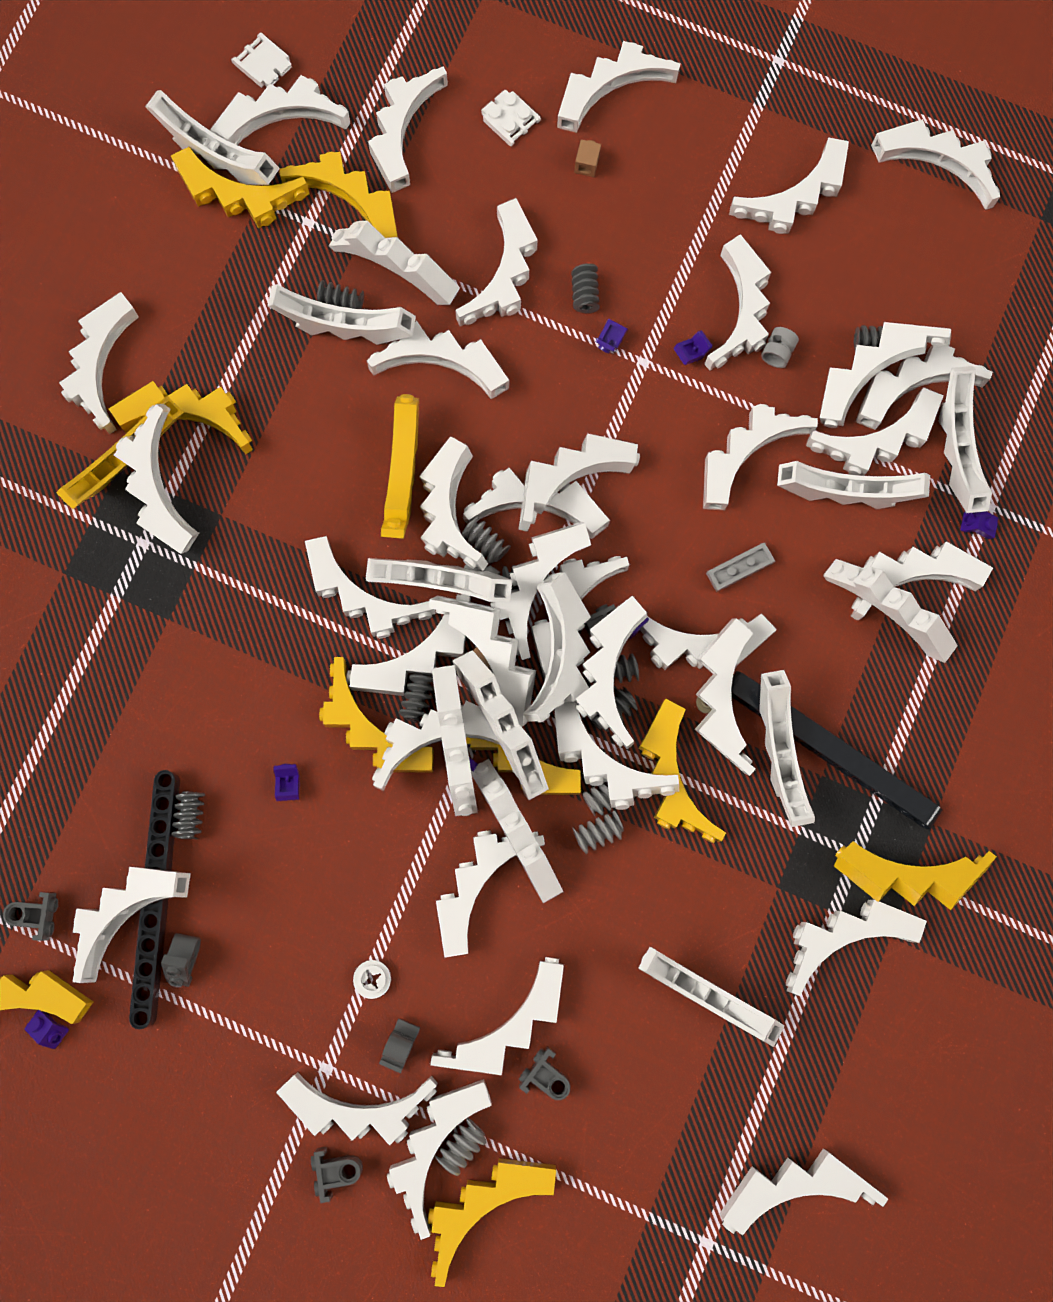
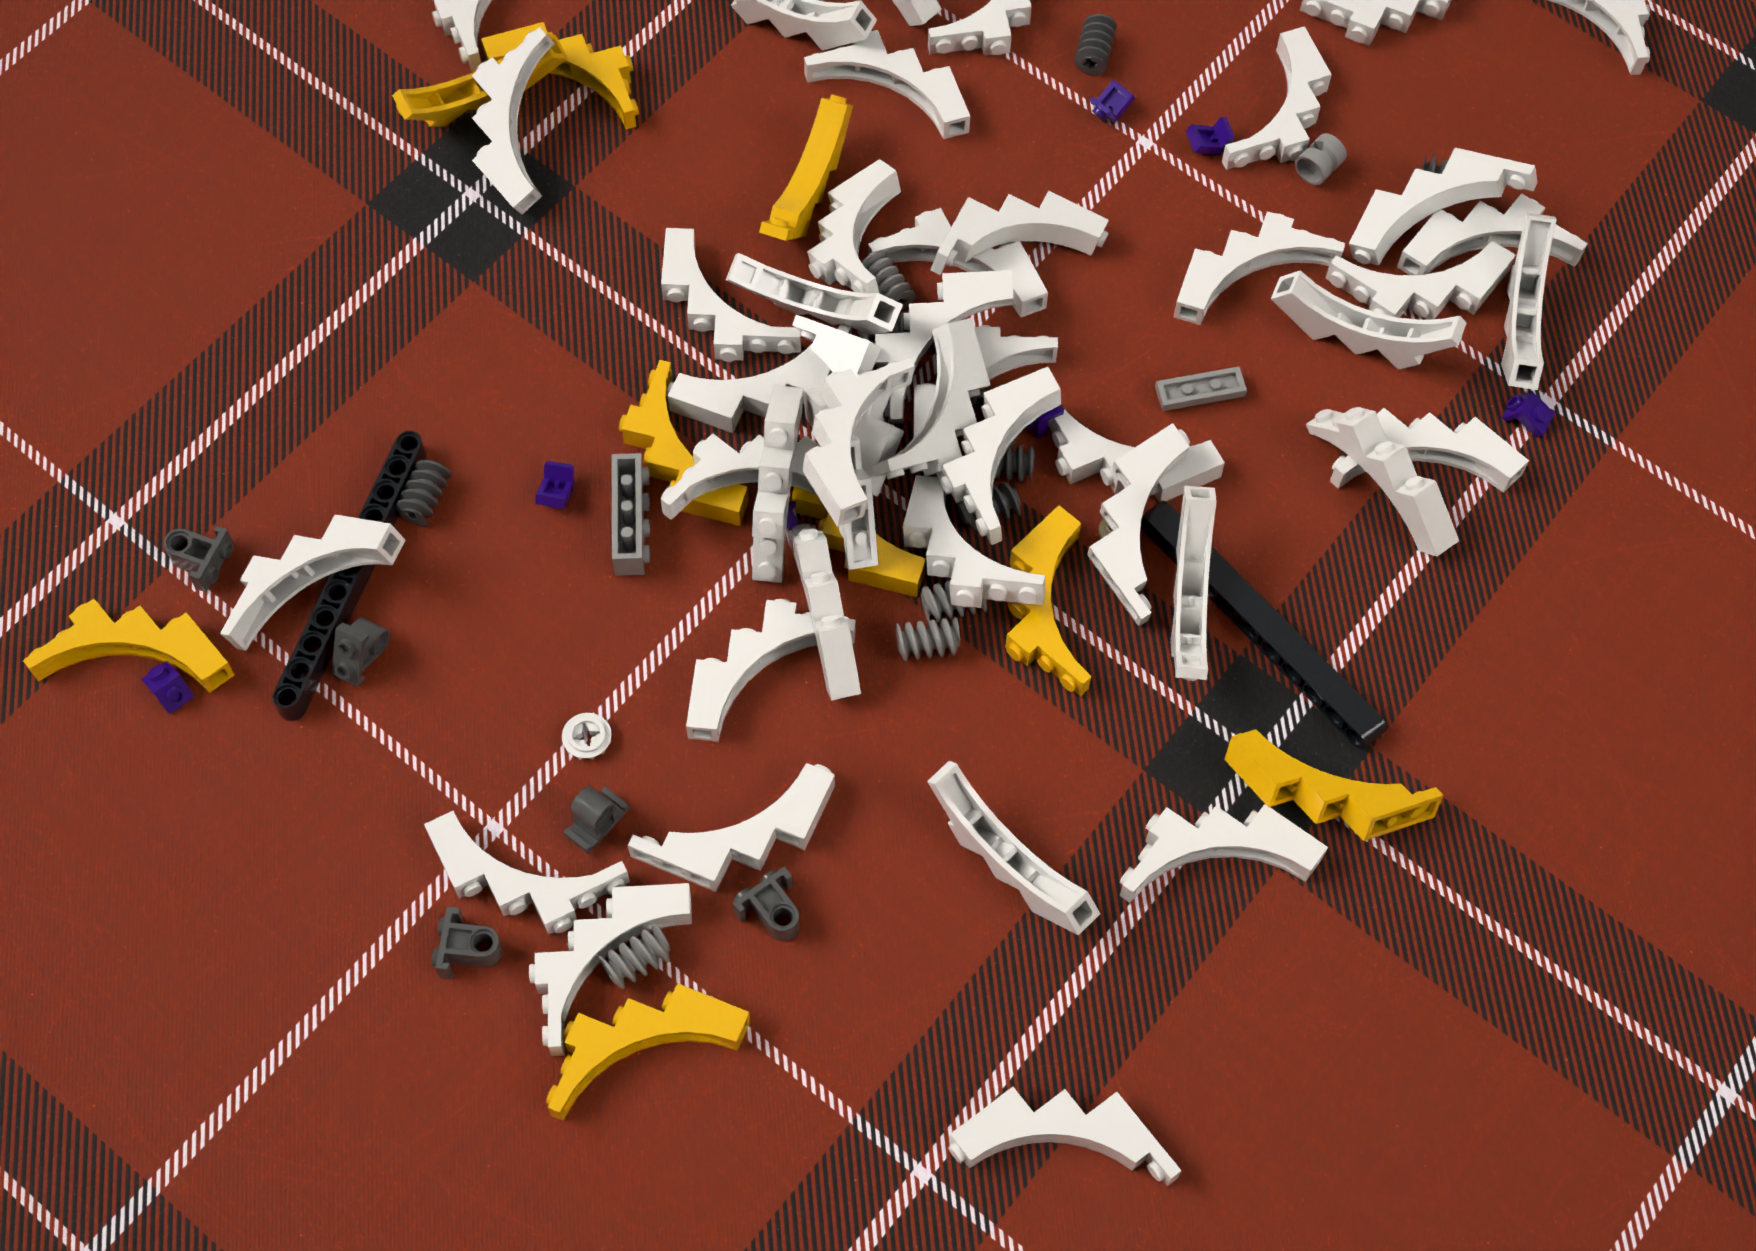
camera: 20 degrees right, 15 degrees down
(349, 793) = (628, 509): none -> light grey brick
(416, 698) = (746, 426): dark grey piece -> none
(502, 744) = (830, 464): none -> white arch

